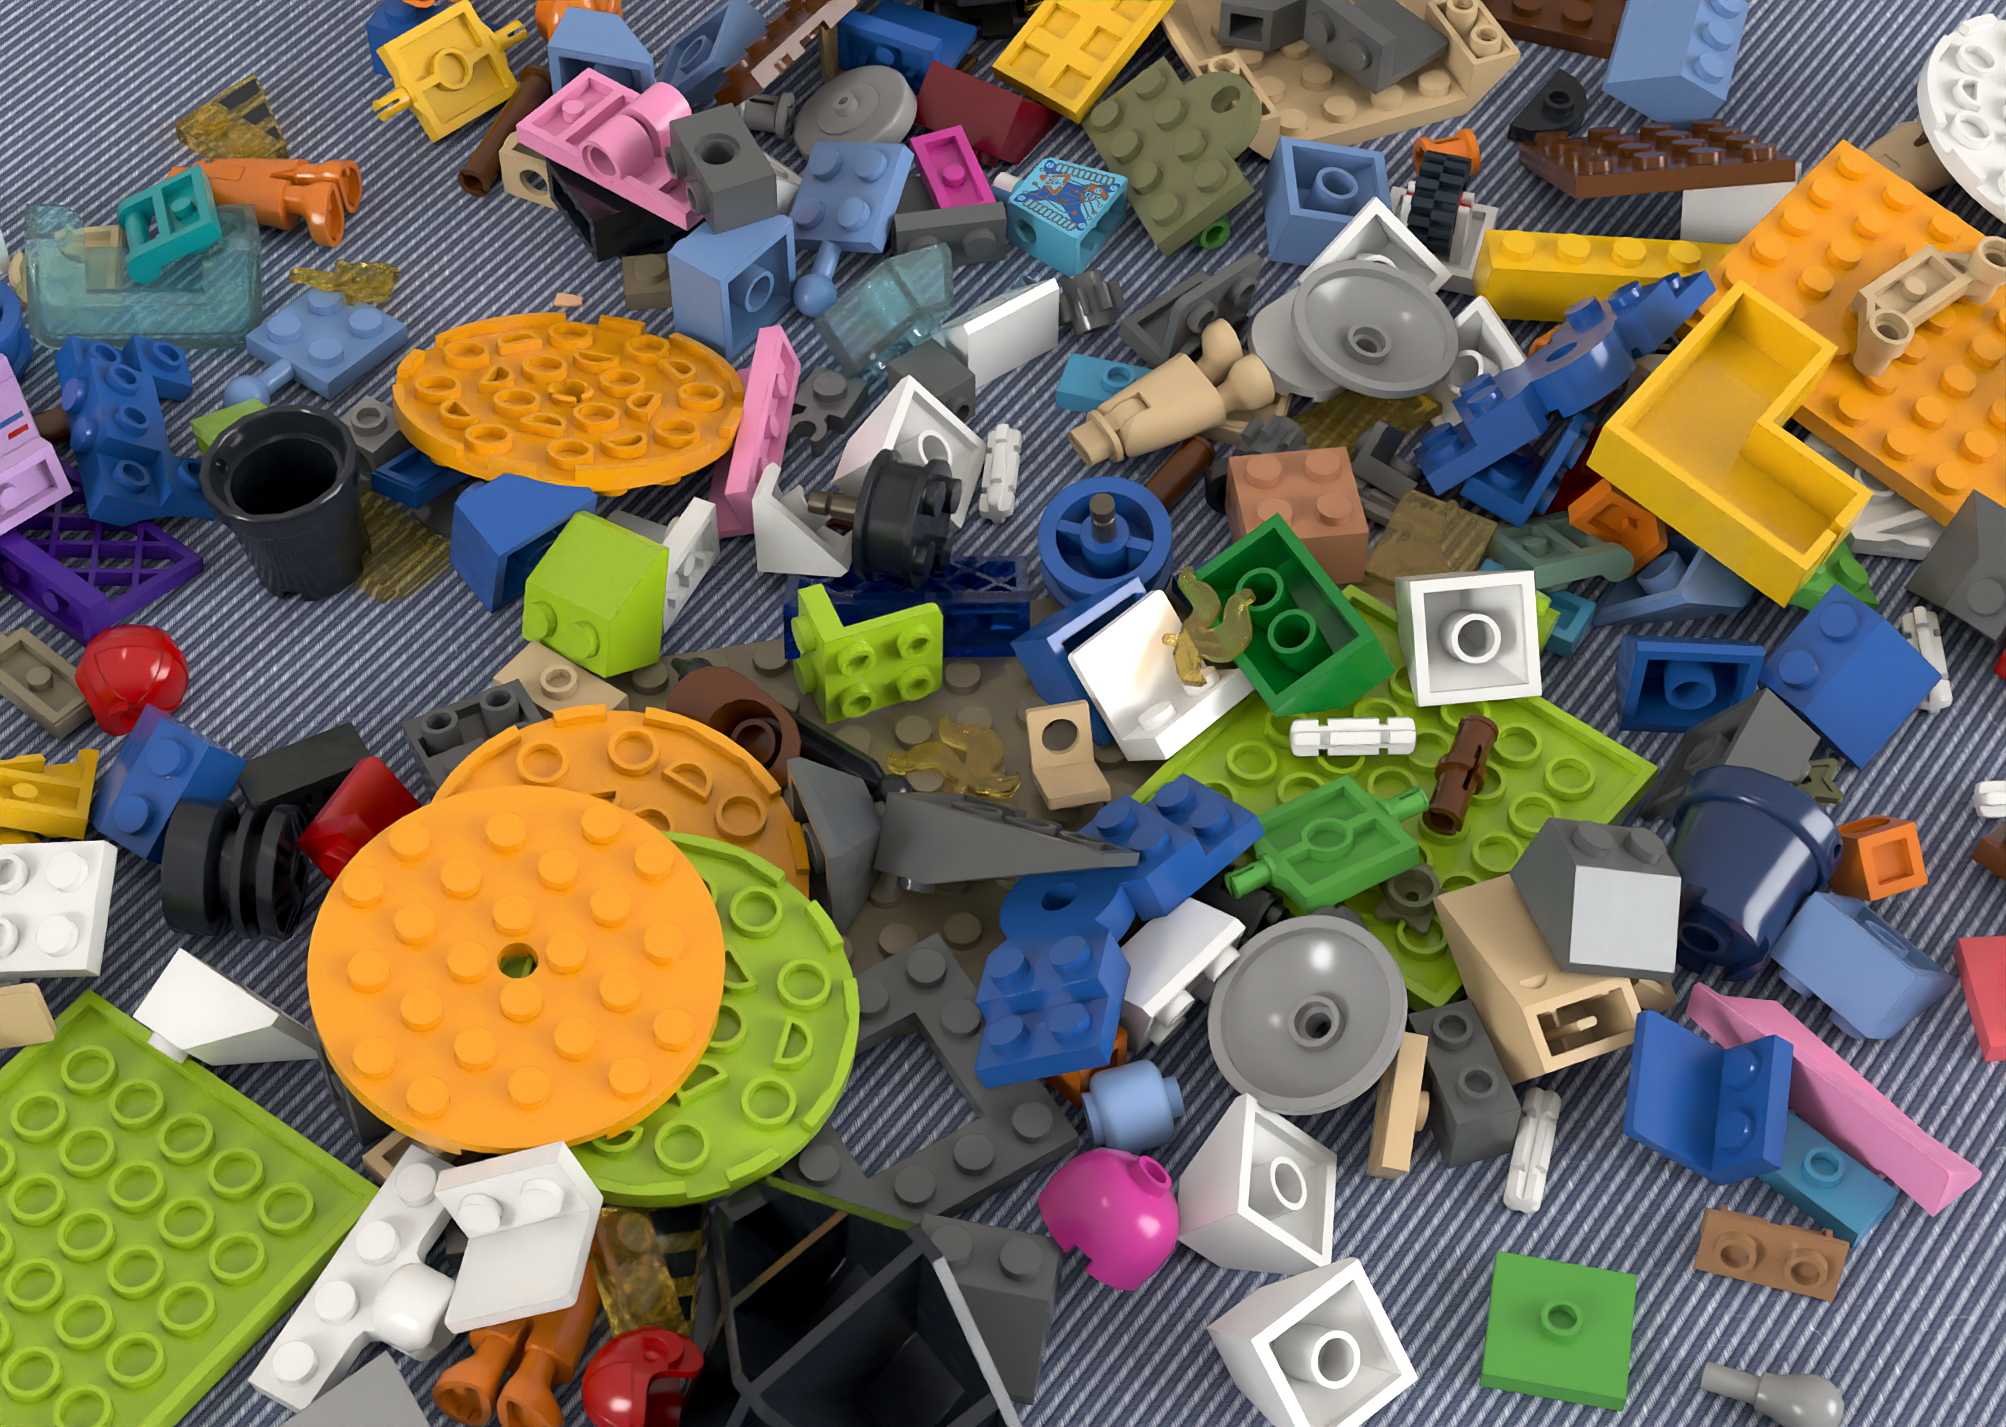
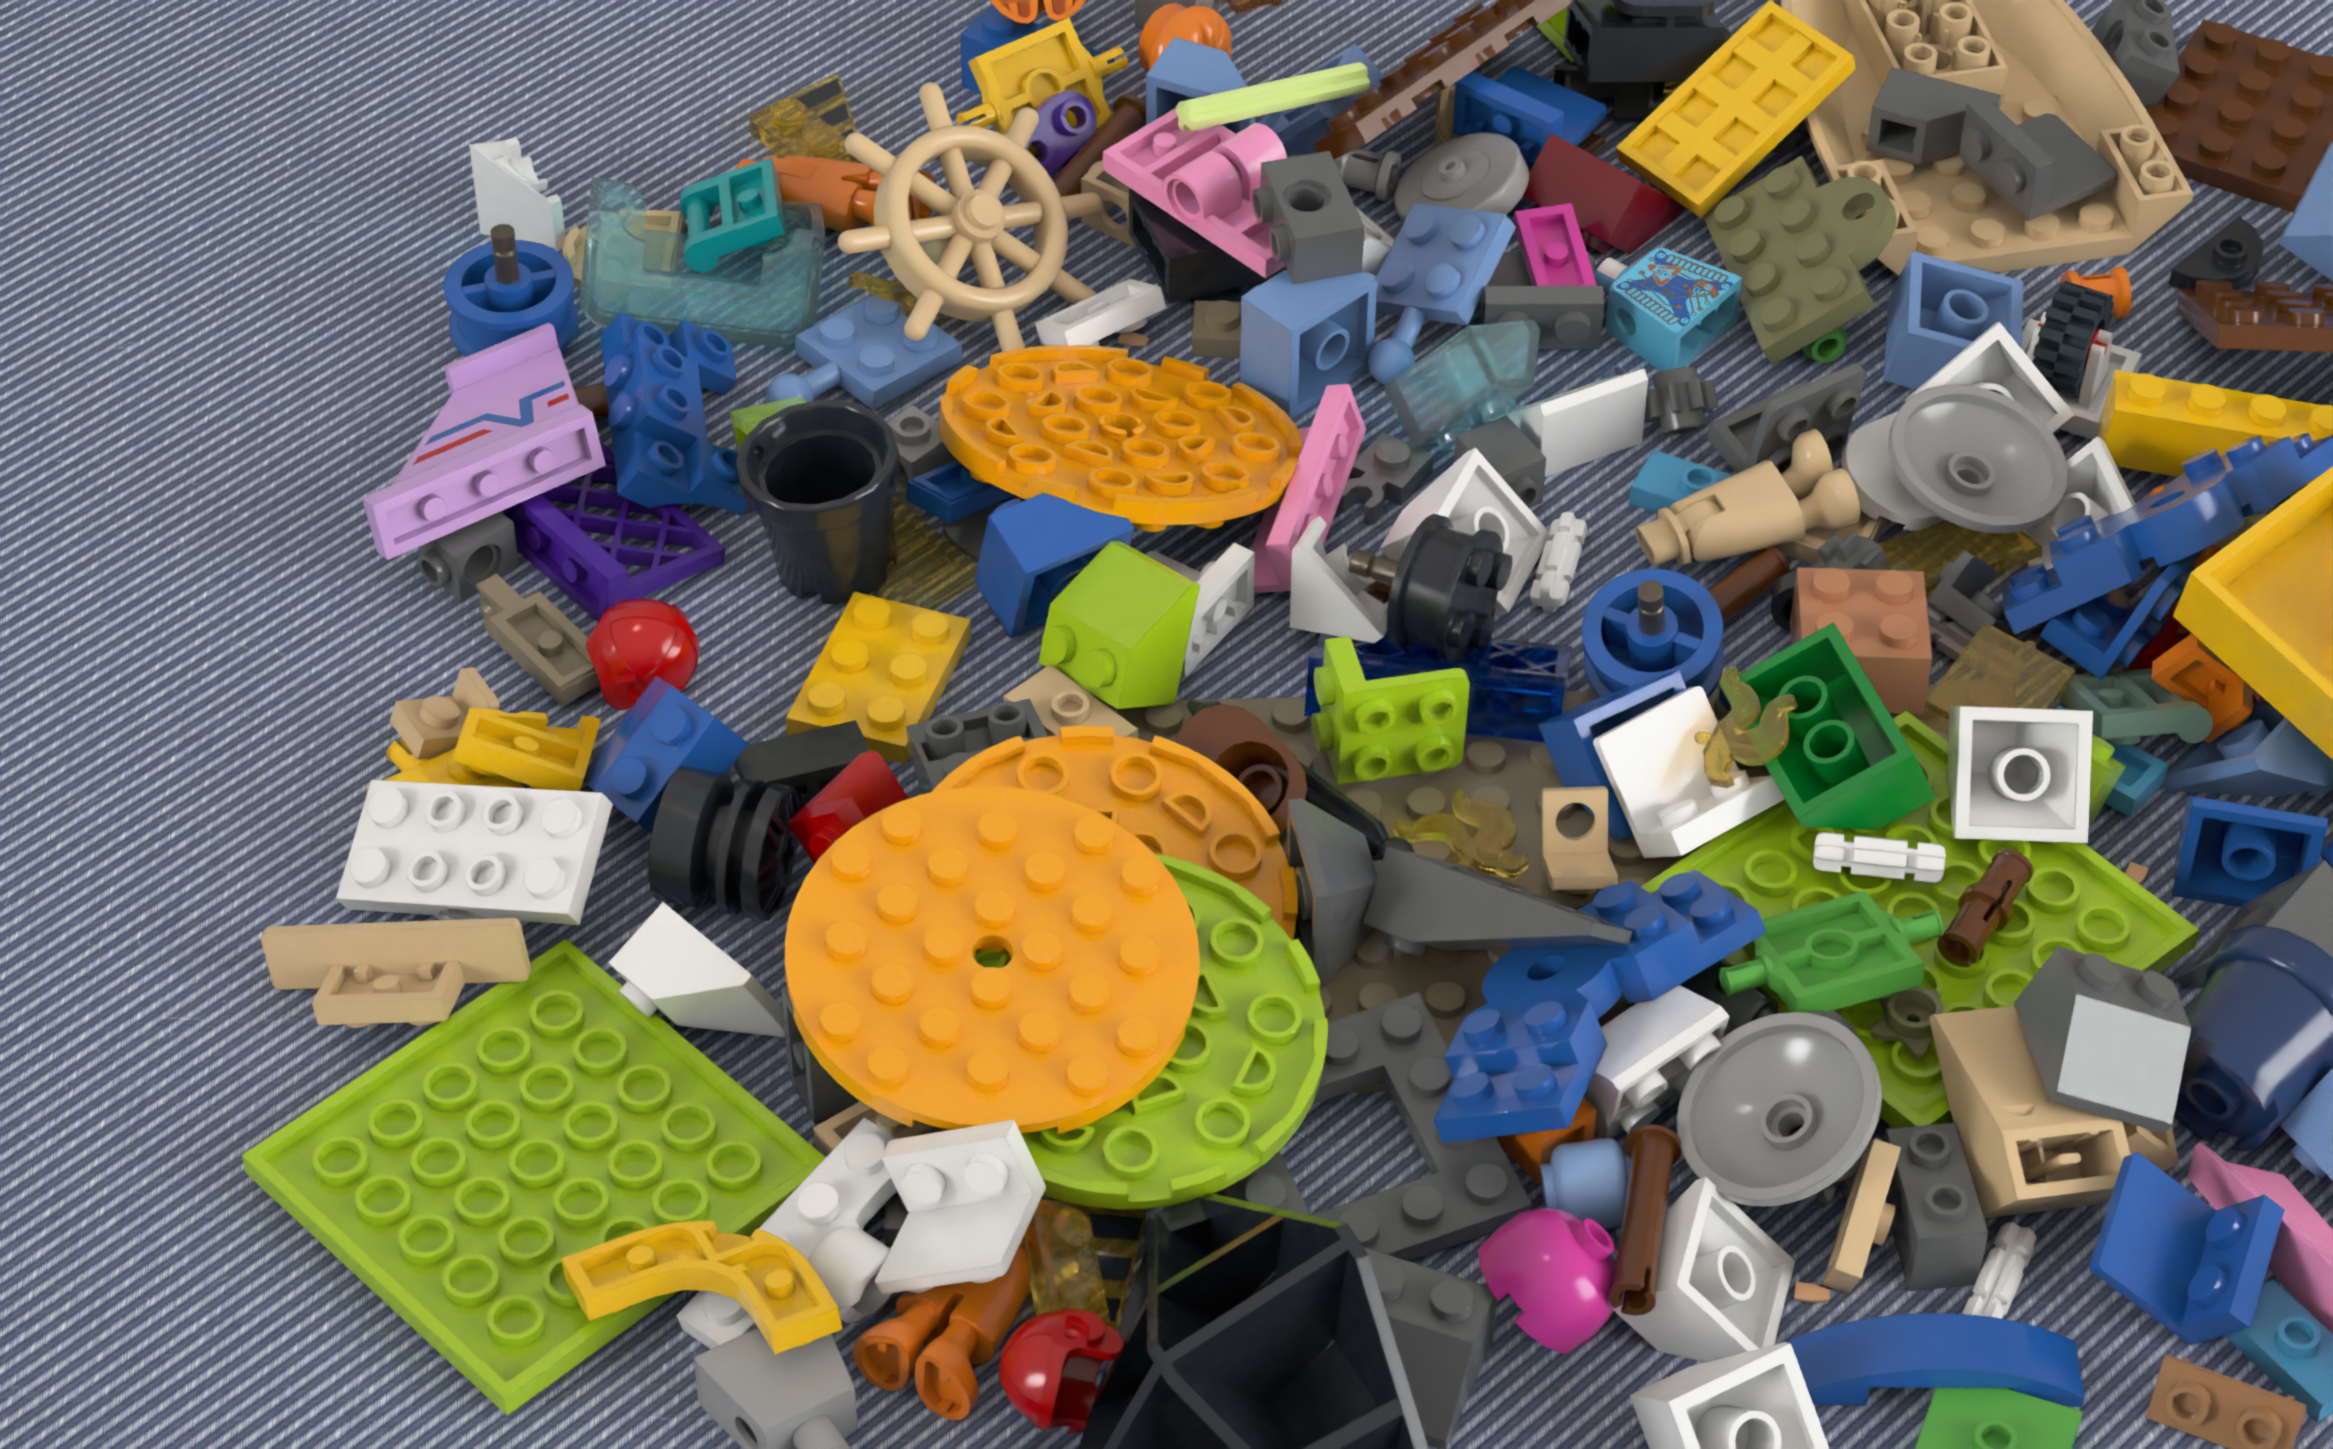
camera: 10 degrees right, 5 degrees down
(257, 1320) = (756, 1271): none -> yellow plate
(369, 667) = (882, 670): none -> yellow plate
(397, 207) = (969, 221): none -> tan piece
(462, 110) = (1054, 136): none -> dark purple plate
(546, 275) = (1110, 311): none -> white plate
(668, 54) = (1272, 97): none -> yellowish green axle
(1193, 1143) = (1652, 1154): none -> reddish brown pin
(1356, 1184) = (1811, 1292): none -> light nougat piece
(1489, 1237) = (1937, 1353): none -> blue slope
(1583, 712) = (2137, 872): none -> light nougat piece

